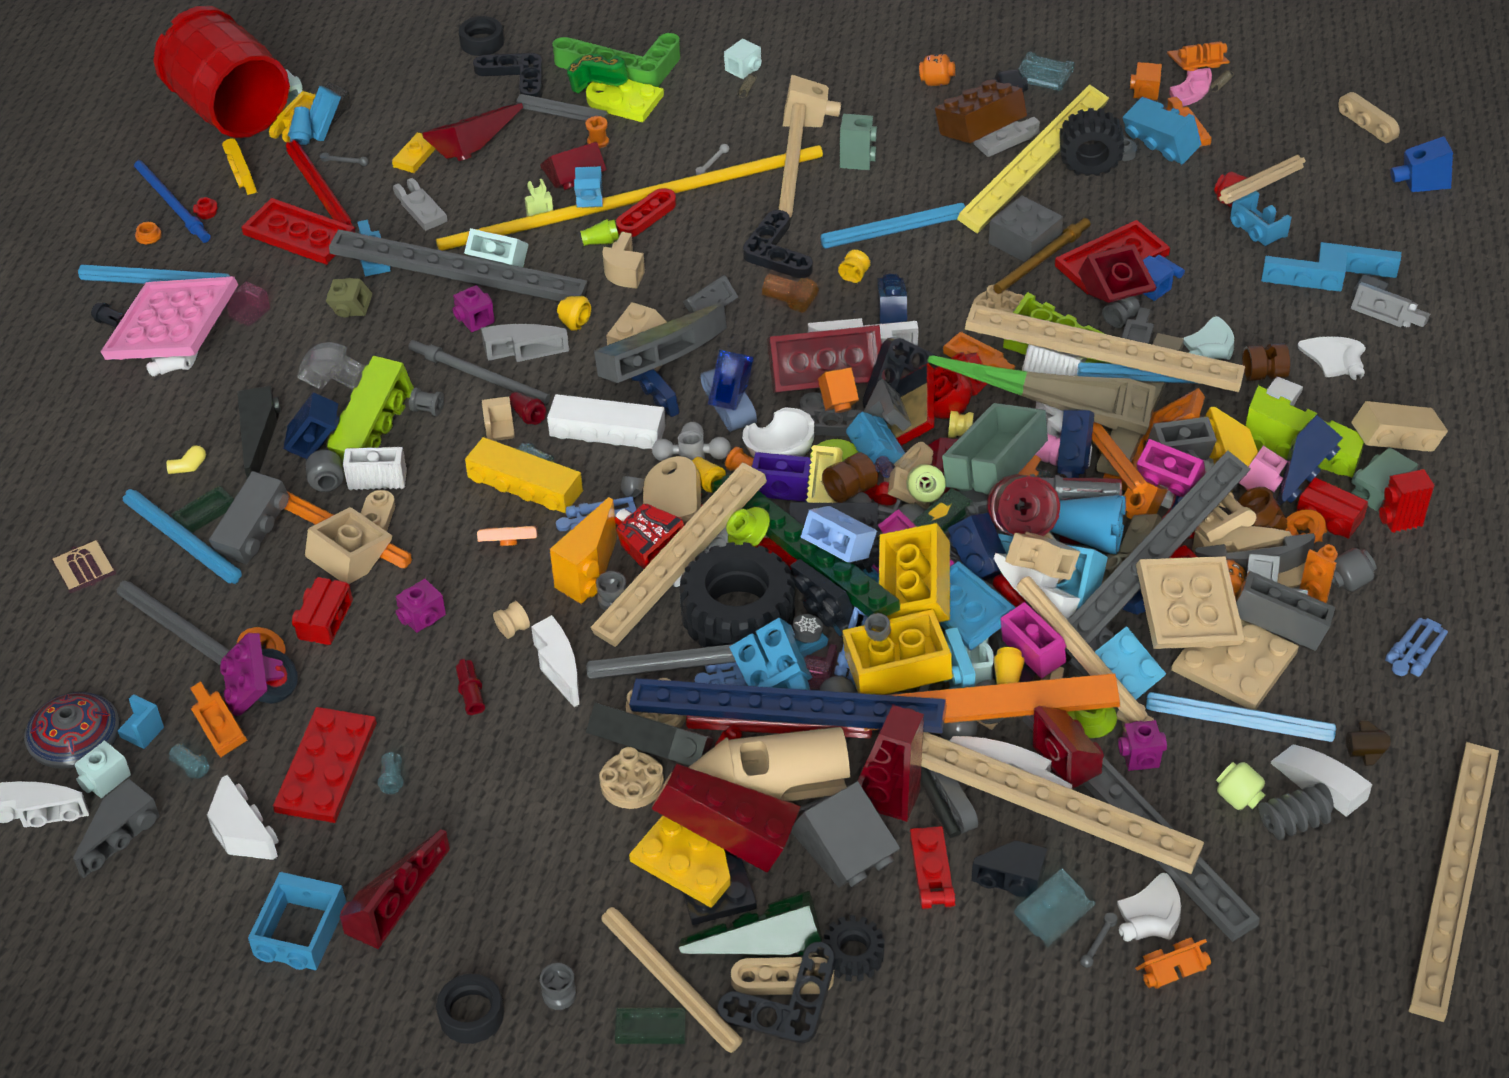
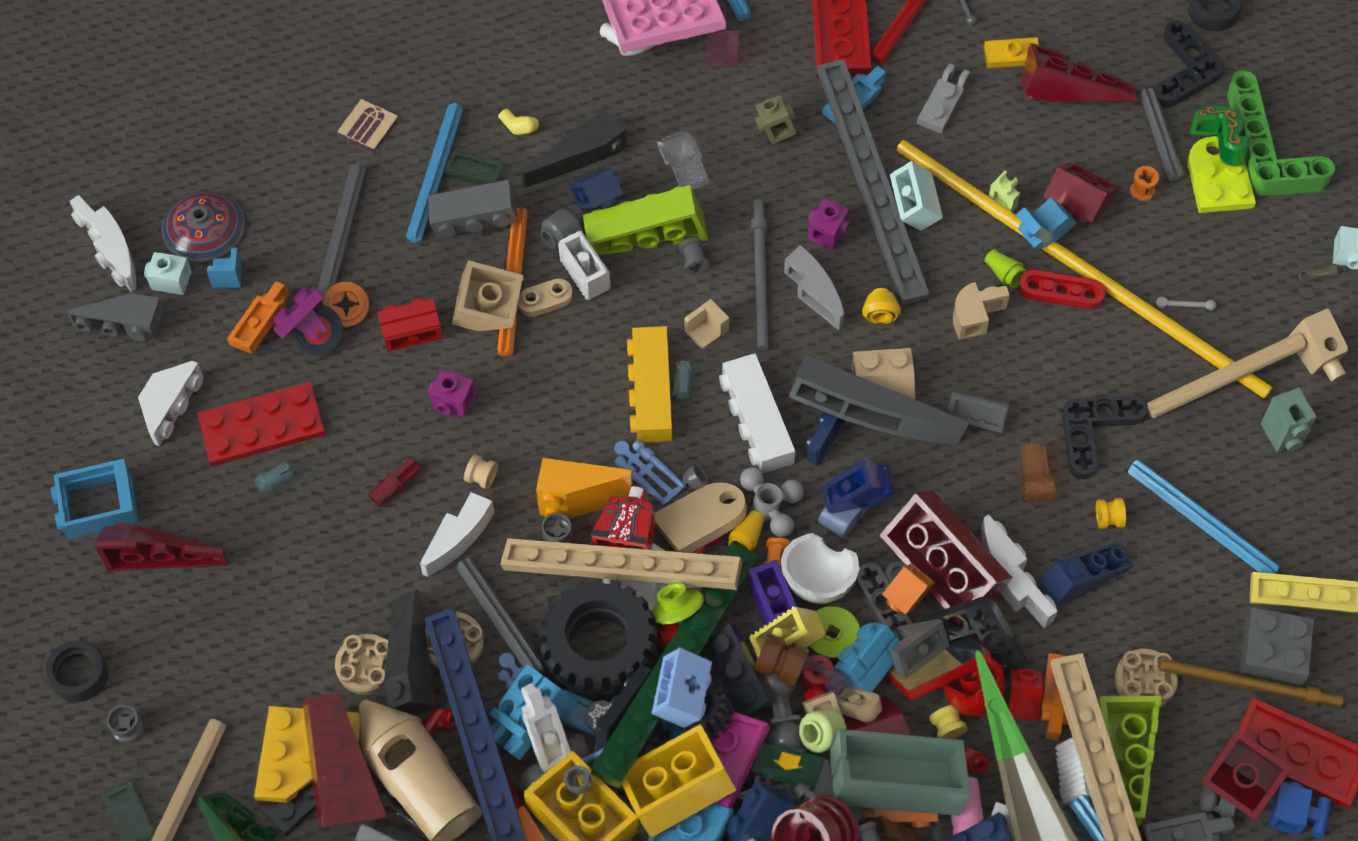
camera: 60 degrees right, 15 degrees up
(194, 765) = (210, 326): clear light blue pin -> none
(507, 535) = (576, 412): plate -> none
(528, 408) = (736, 341): dark red cone -> none
(804, 644) = (544, 728): none -> white hinge

